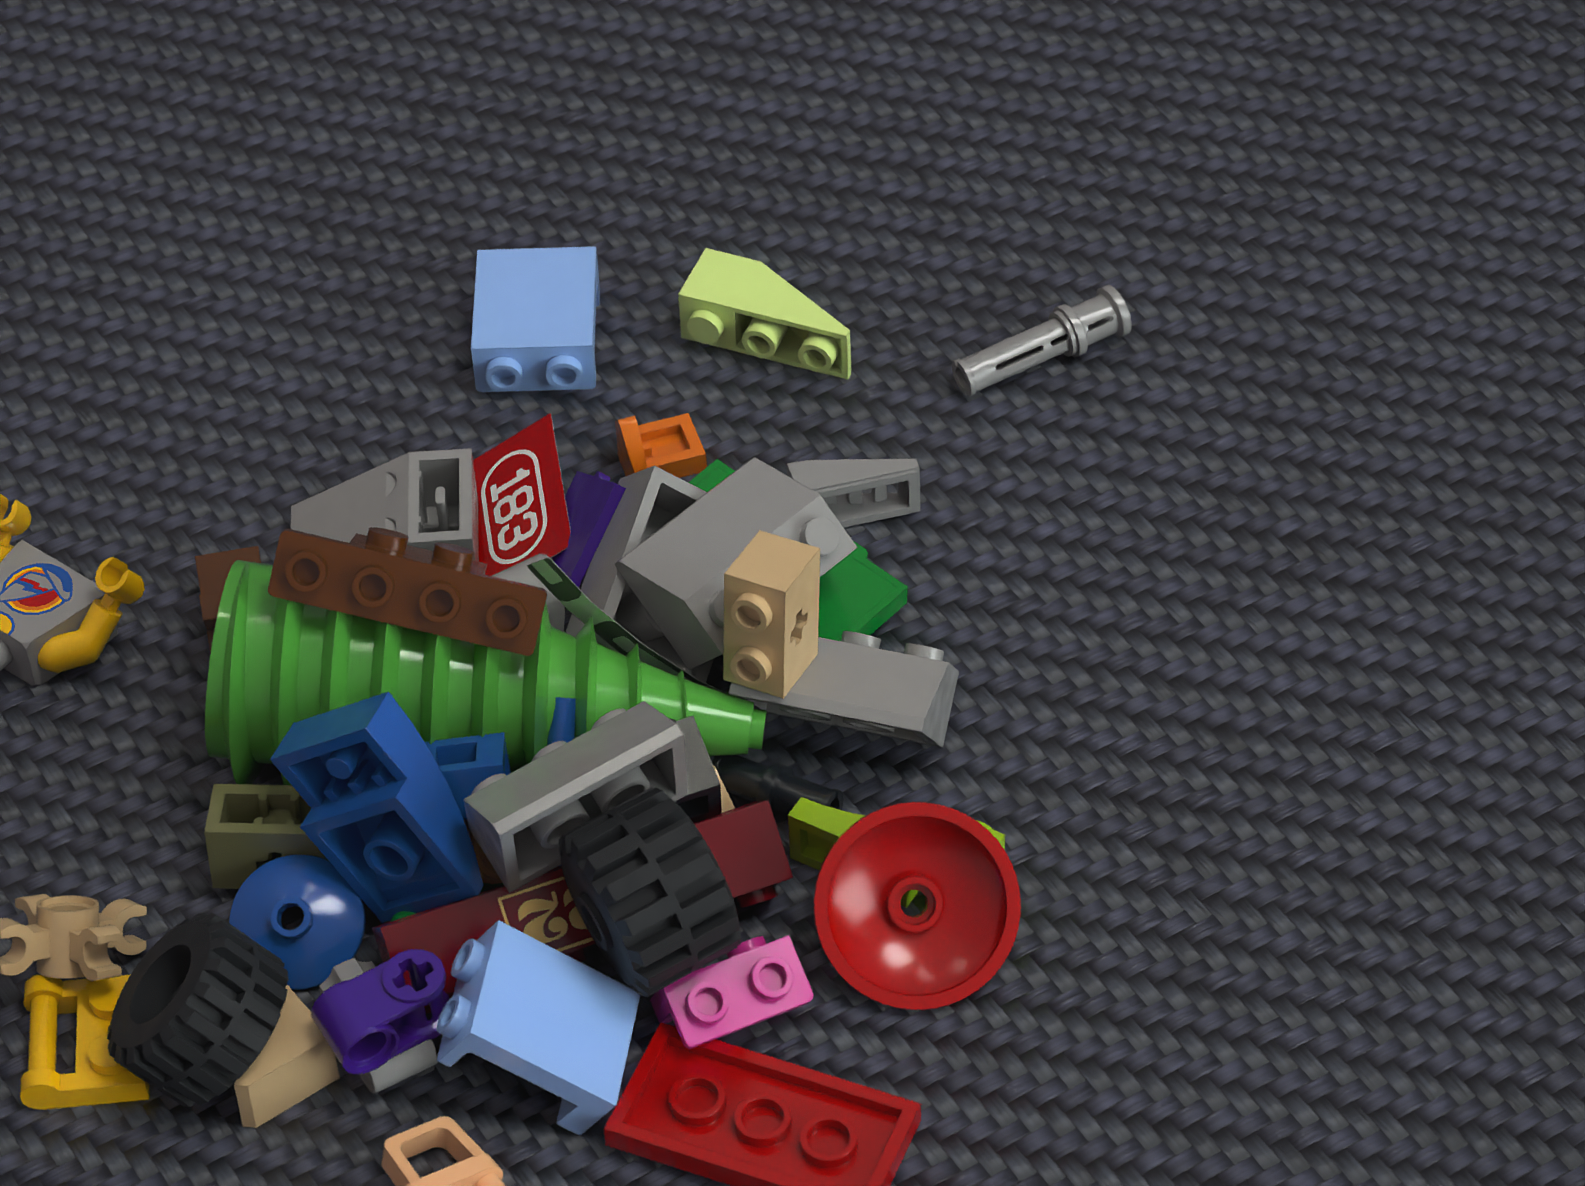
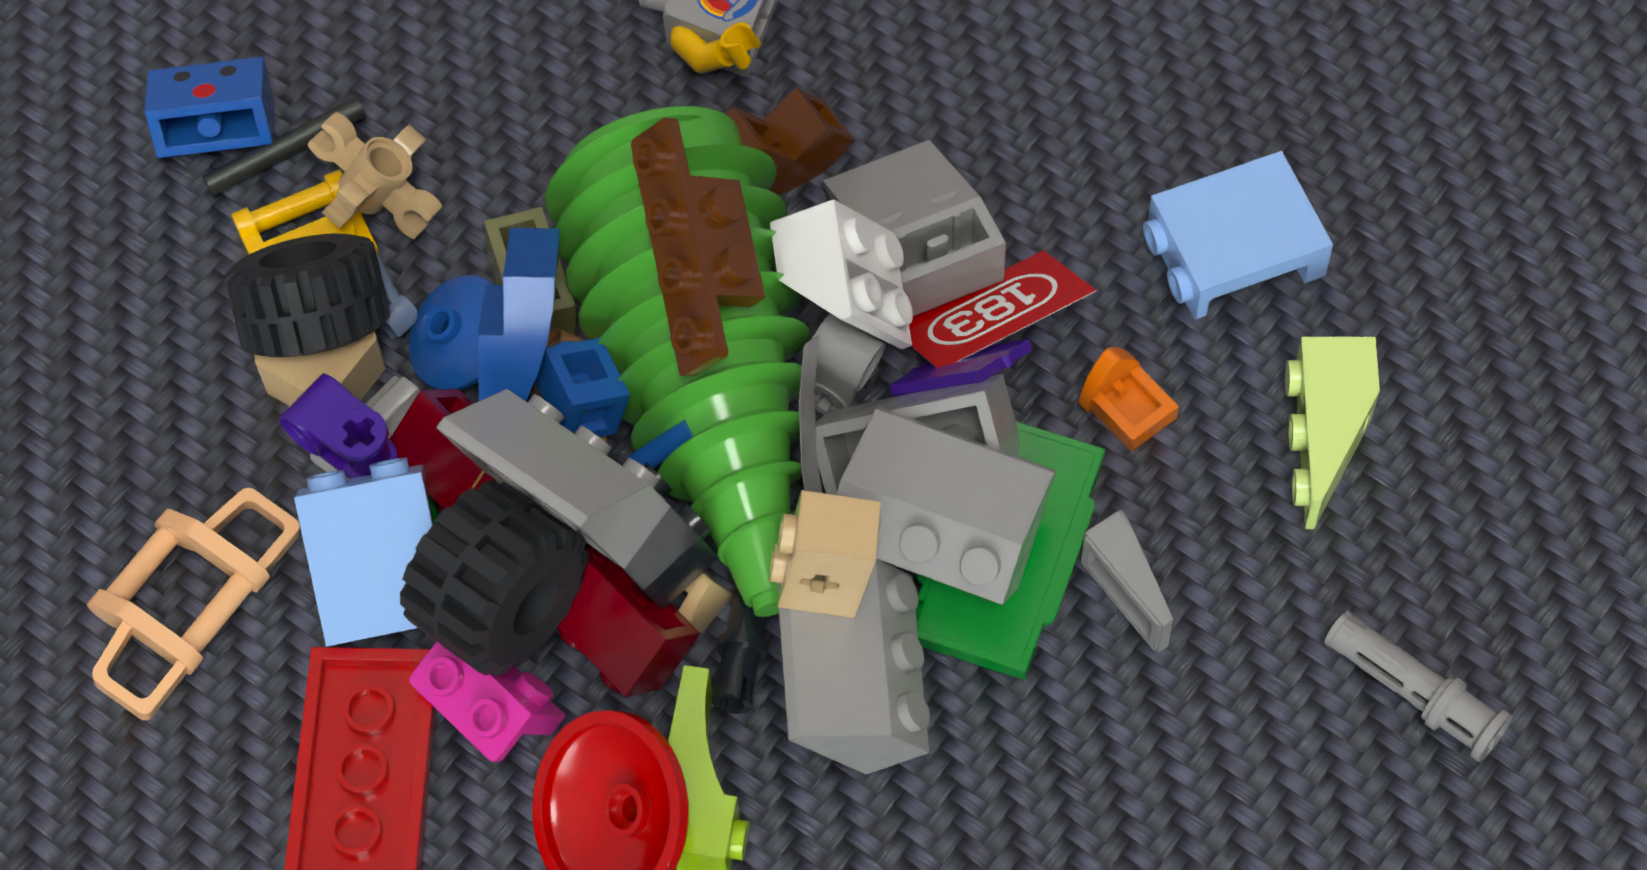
camera: 70 degrees right, 15 degrees up
(496, 533) = (846, 268): none -> white slope

